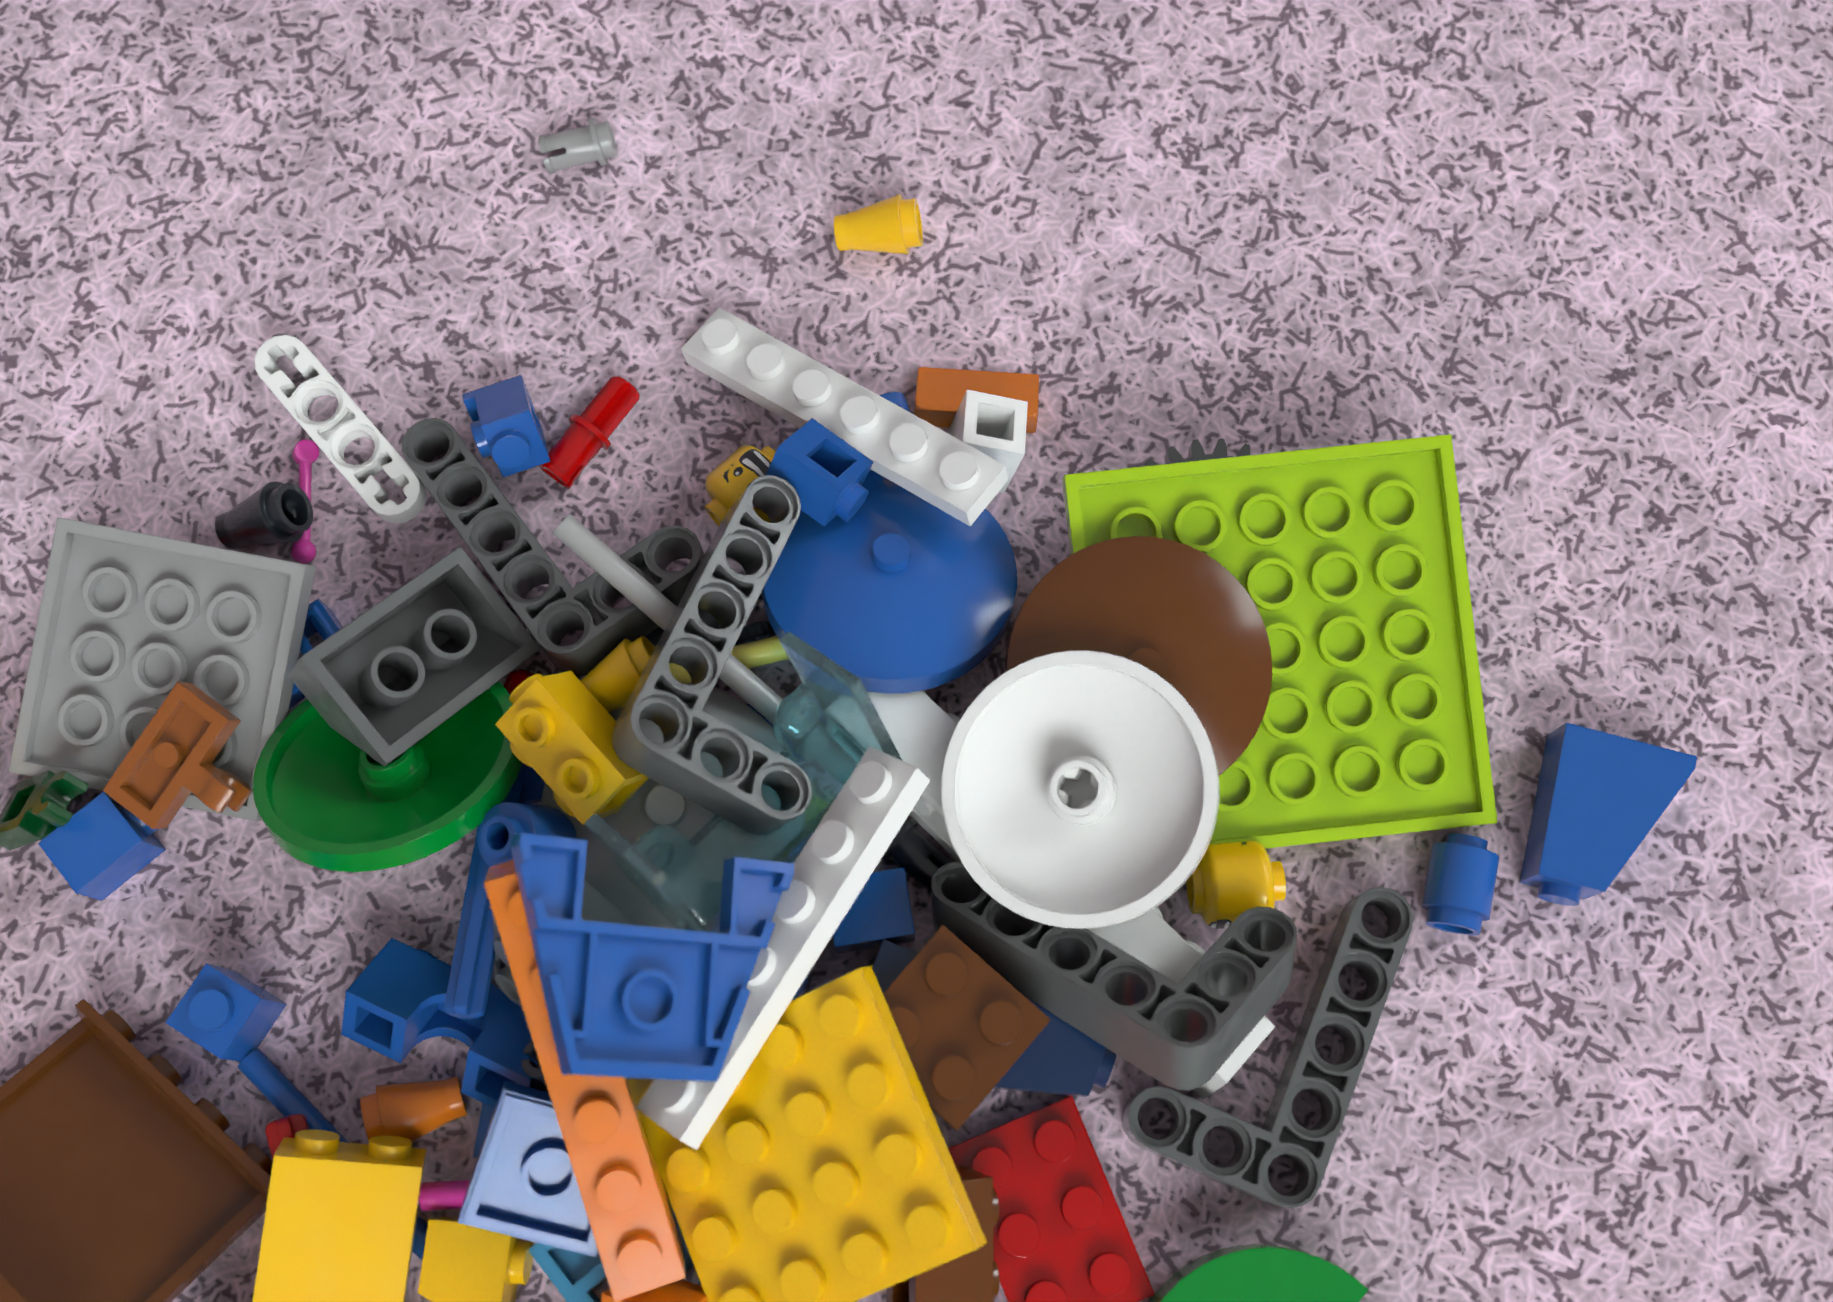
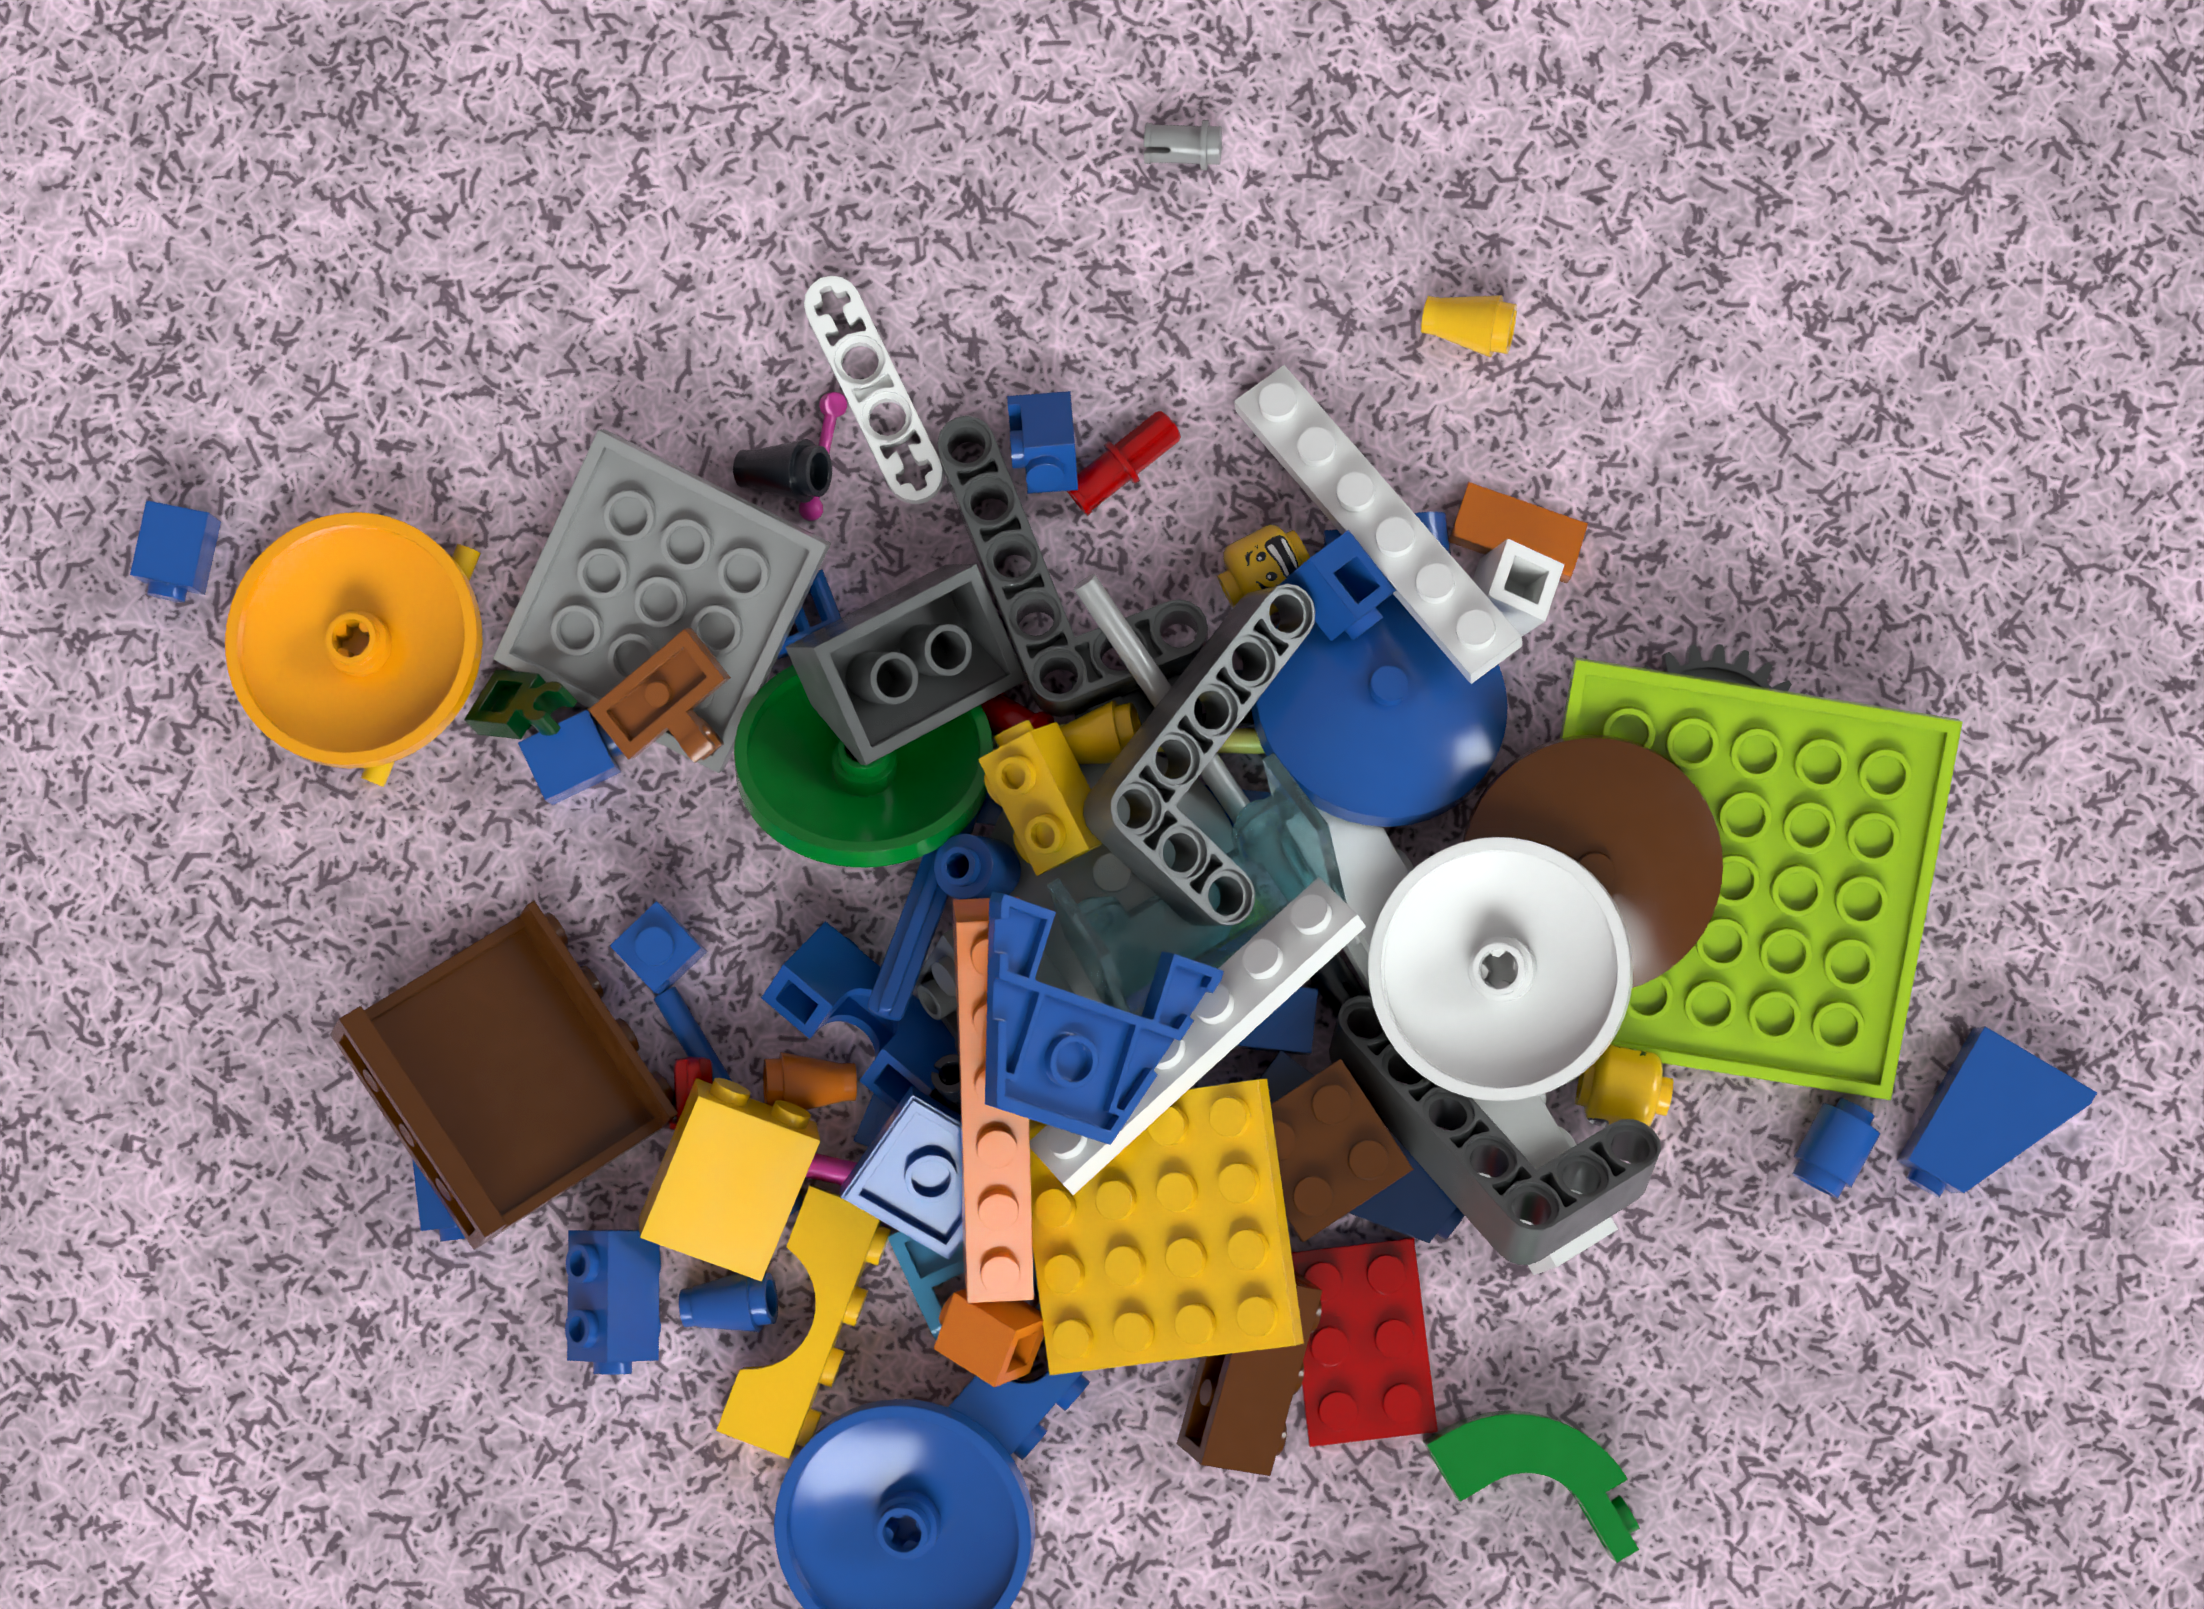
camera: 15 degrees right, 10 degrees up
(1303, 1070) = (1632, 1276): dark grey beam -> none

